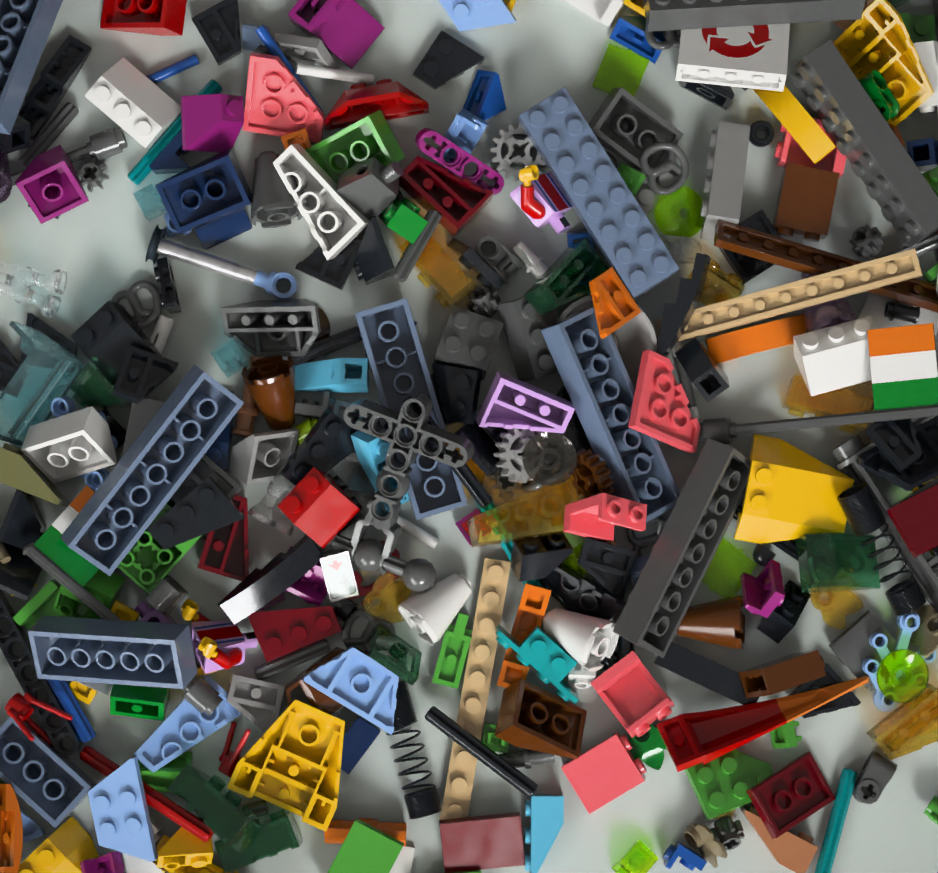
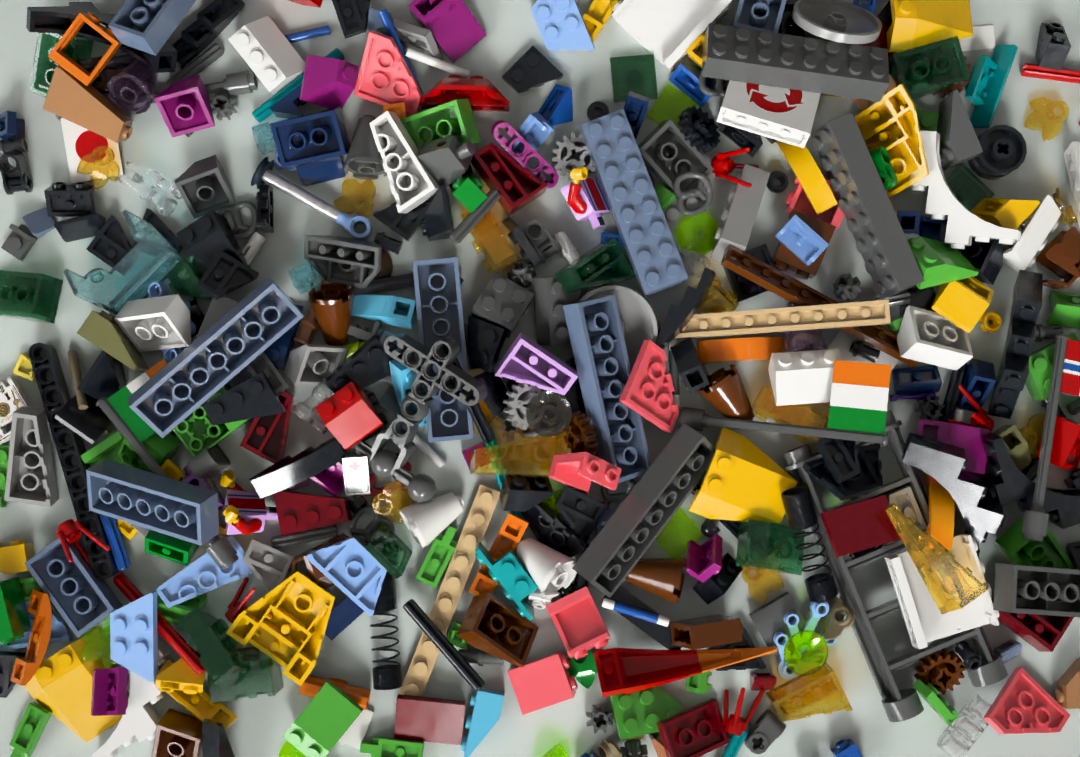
camera: 10 degrees right, 0 degrees up
(80, 834) = (97, 646): none -> clear neon green plate
(91, 274) = (205, 187): none -> dark grey slope
(268, 247) = (354, 195): none -> clear yellow plate
(319, 297) = (388, 243): none -> black pin
(527, 99) = (597, 105): none -> black plate
(567, 45) = (634, 75): none -> clear green plate
(578, 83) = (635, 110): none -> dark blue slope
(611, 302) = (626, 294): orange wing -> none
(657, 91) = (699, 129): none -> black gear
(674, 795) = (602, 723): none -> dark grey gear
(693, 127) = (723, 165): none -> red plant
(696, 668) = (636, 612): none -> blue bar
(753, 394) = (728, 394): none -> reddish brown cone
(802, 198) = (801, 240): none -> medium blue hinge
(837, 775) = (735, 723): none -> red plant
(860, 721) = (762, 681): none -> dark red slope

